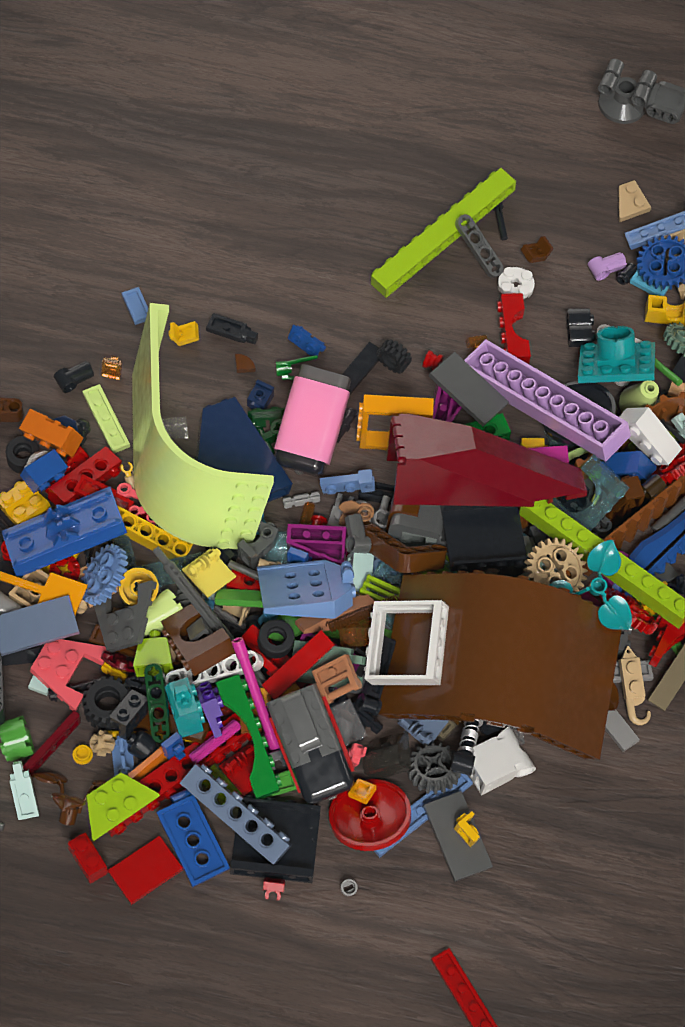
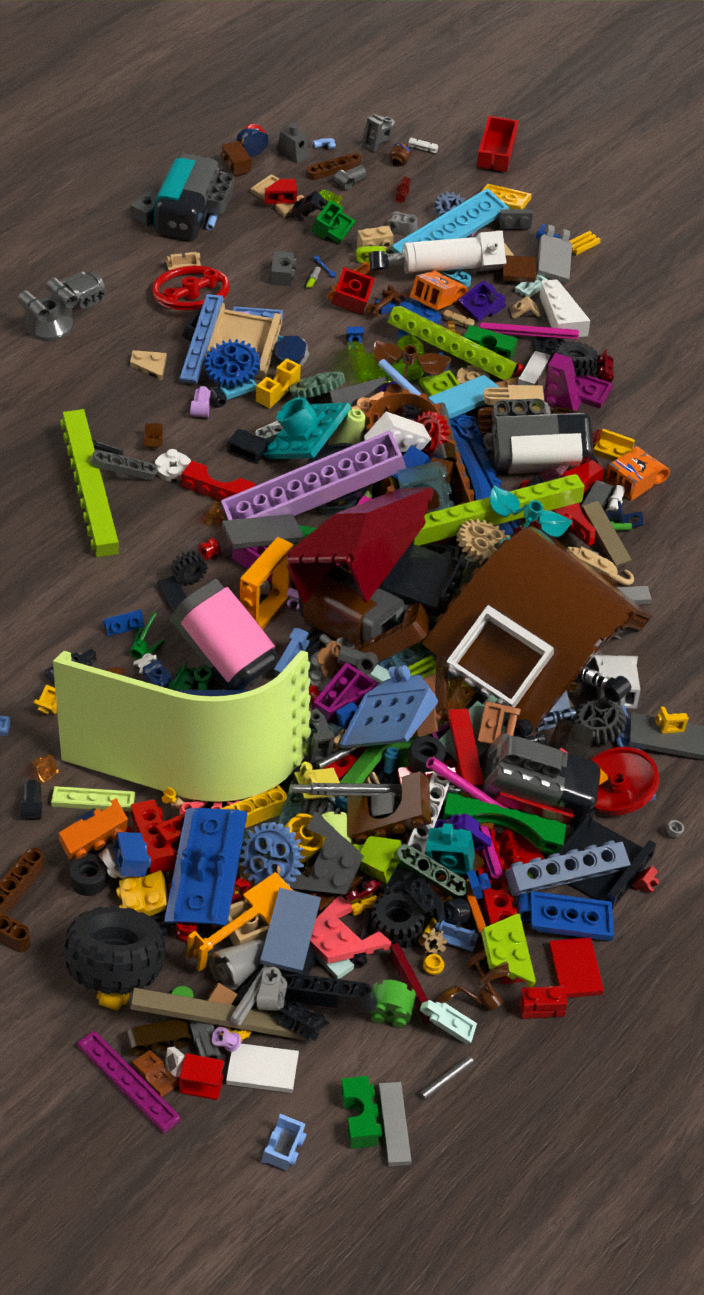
camera: 60 degrees left, 15 degrees down
(273, 380) = (146, 659): none -> white piece

